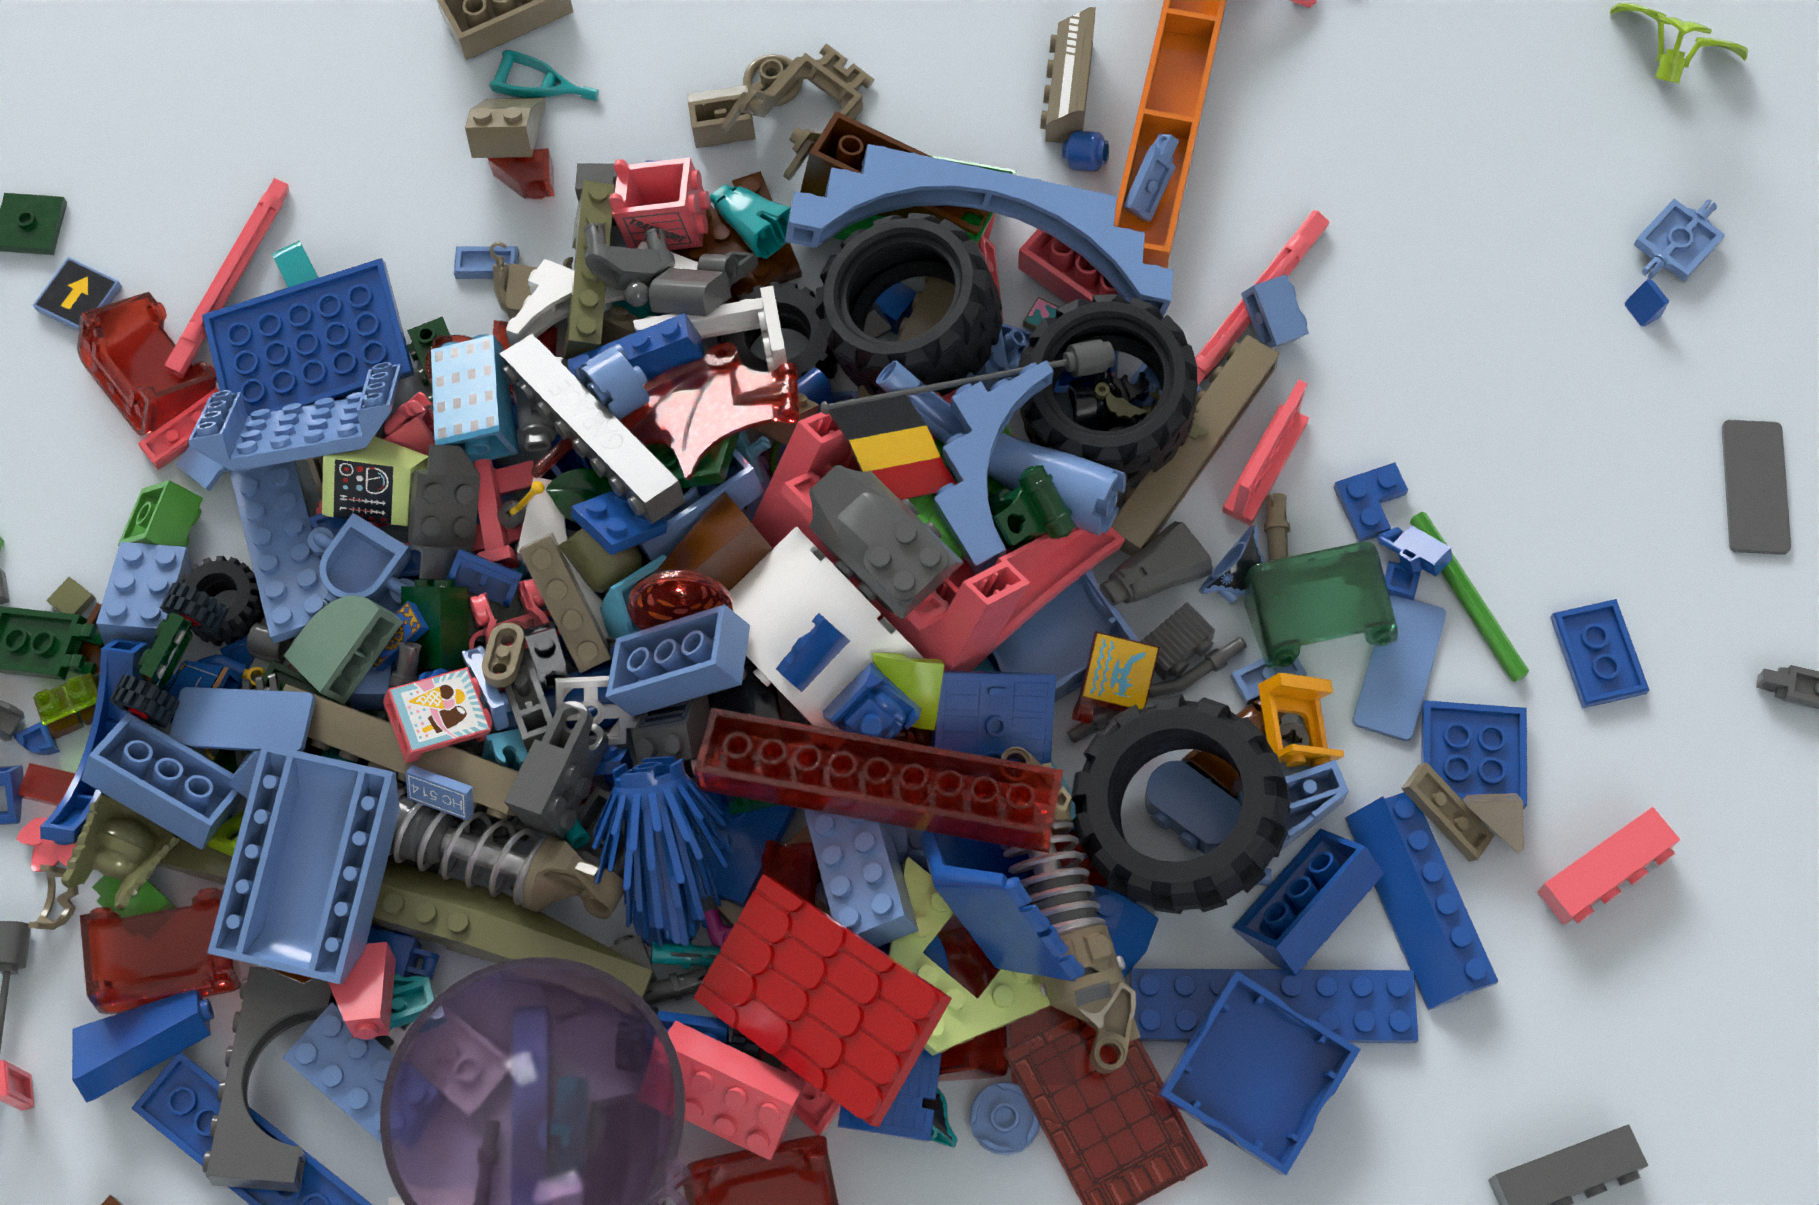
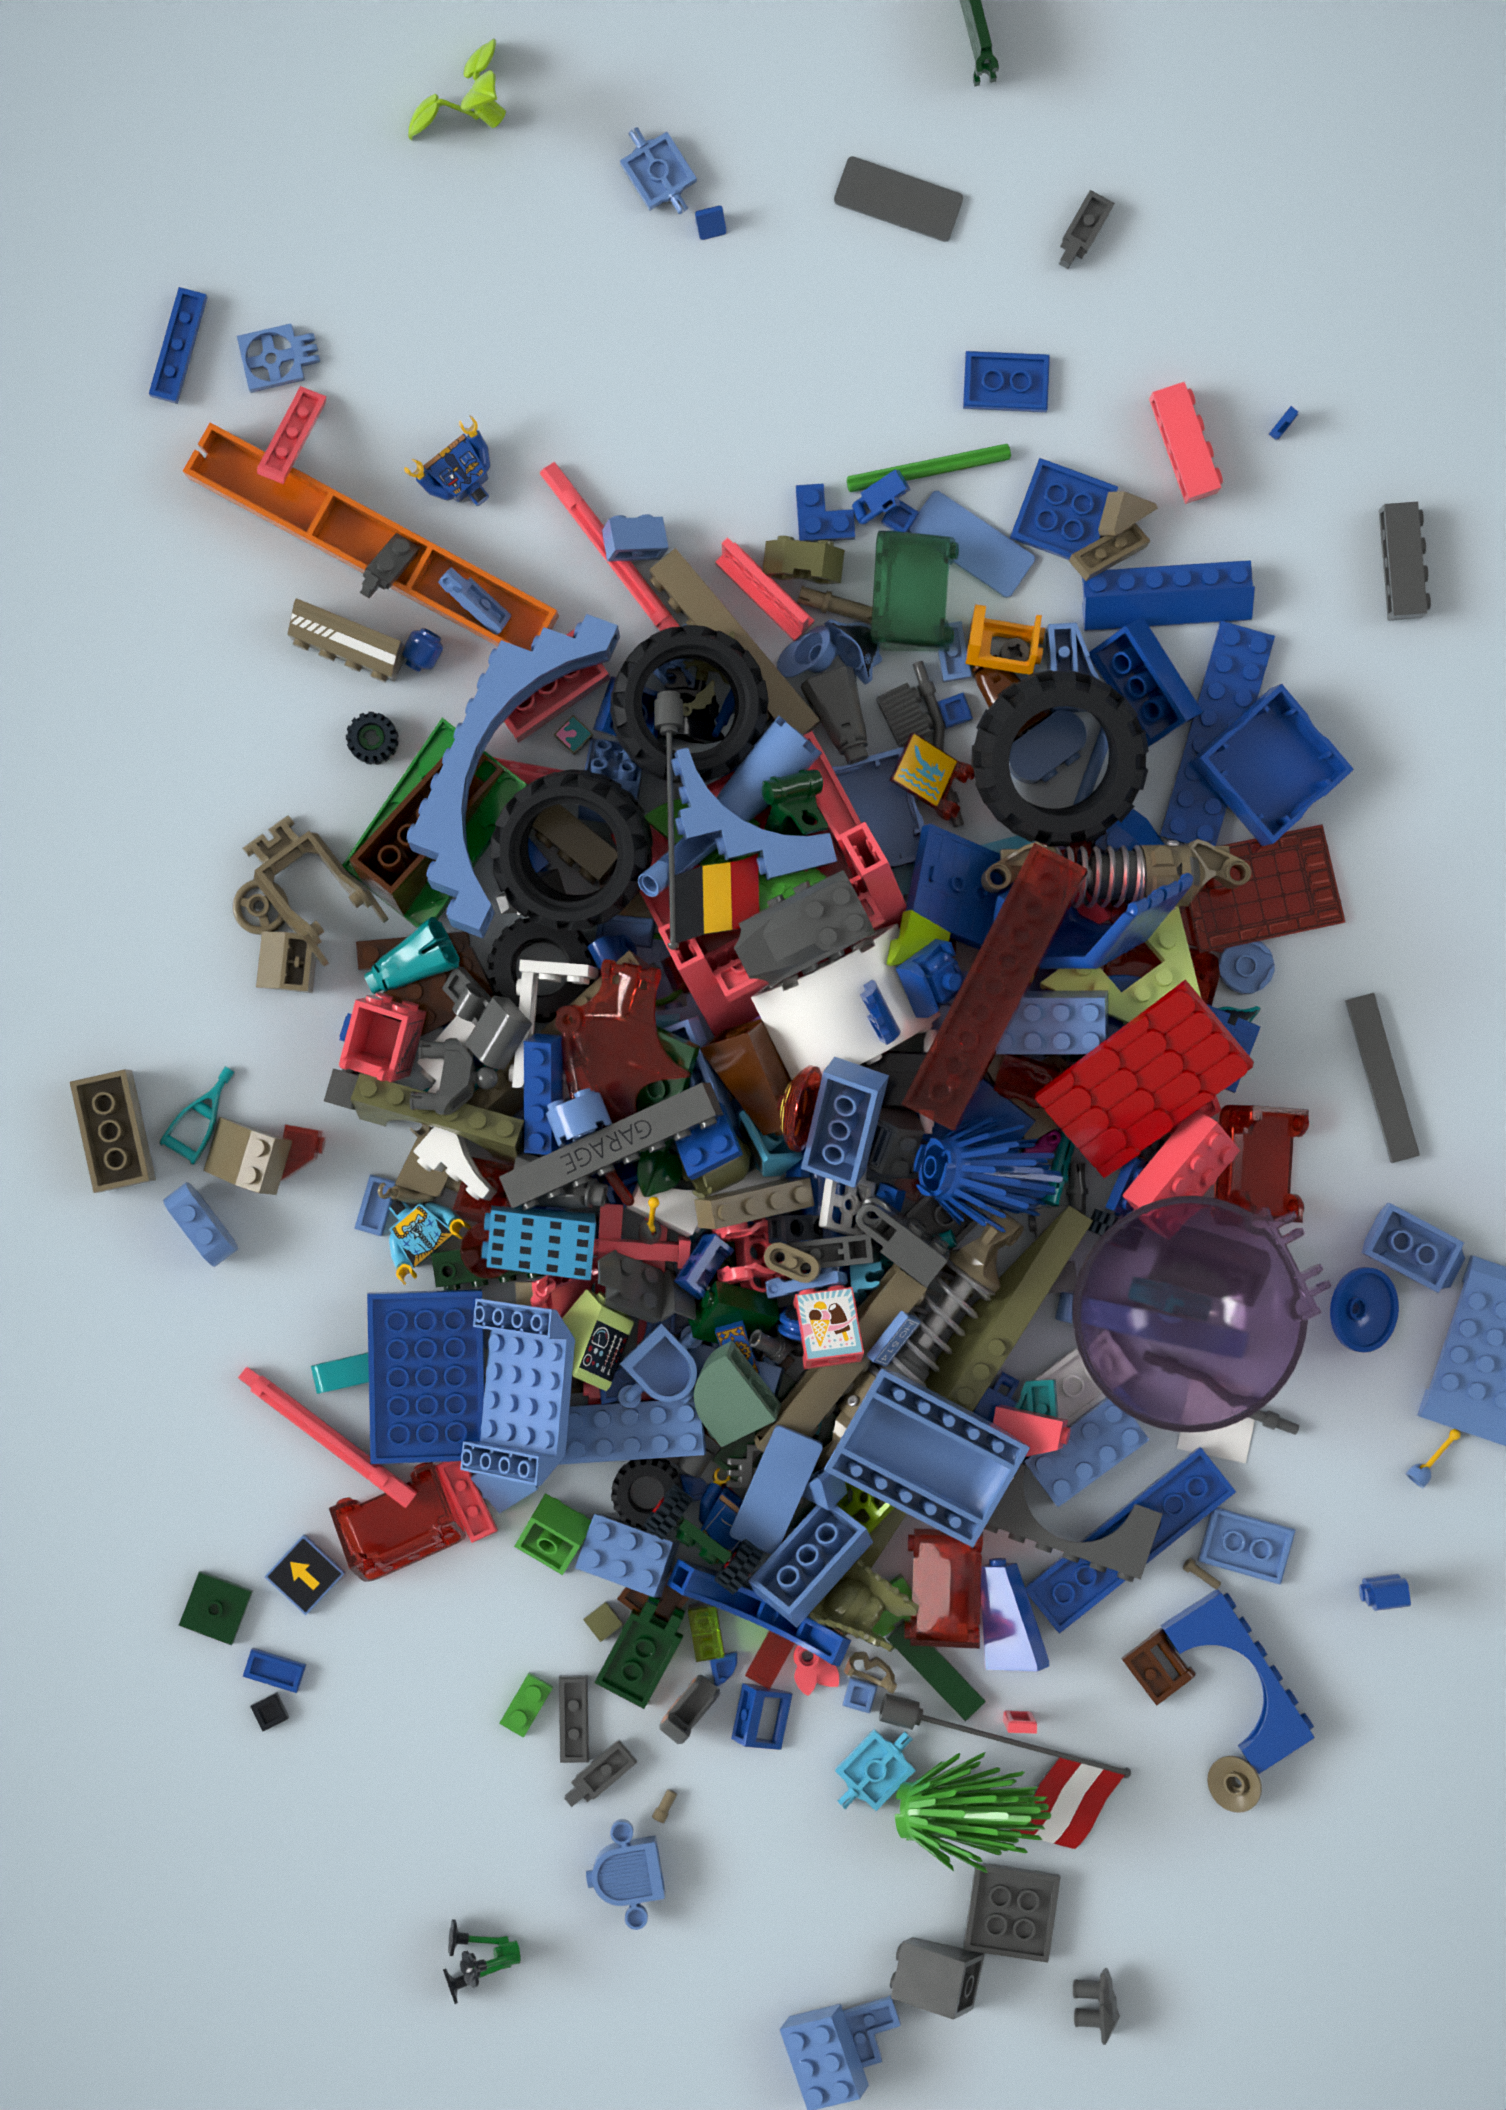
camera: 80 degrees left, 20 degrees up
(25, 898) = (860, 1695): none -> medium blue tile
(53, 996) = (938, 1674): none -> dark green tile
(426, 102) = (200, 1224): none -> medium blue brick
(464, 303) = (420, 1234): none -> torso
(991, 137) = (384, 730): none -> black bush
(1159, 85) = (388, 564): none -> dark grey hinge
(1202, 688) = (955, 710): none -> blue tile
(1212, 525) = (808, 653): none -> medium blue piece
(1286, 134) = (457, 469): none -> blue torso
(1314, 488) = (803, 560): none -> olive brick
(1679, 979) = (1284, 423): none -> blue tile

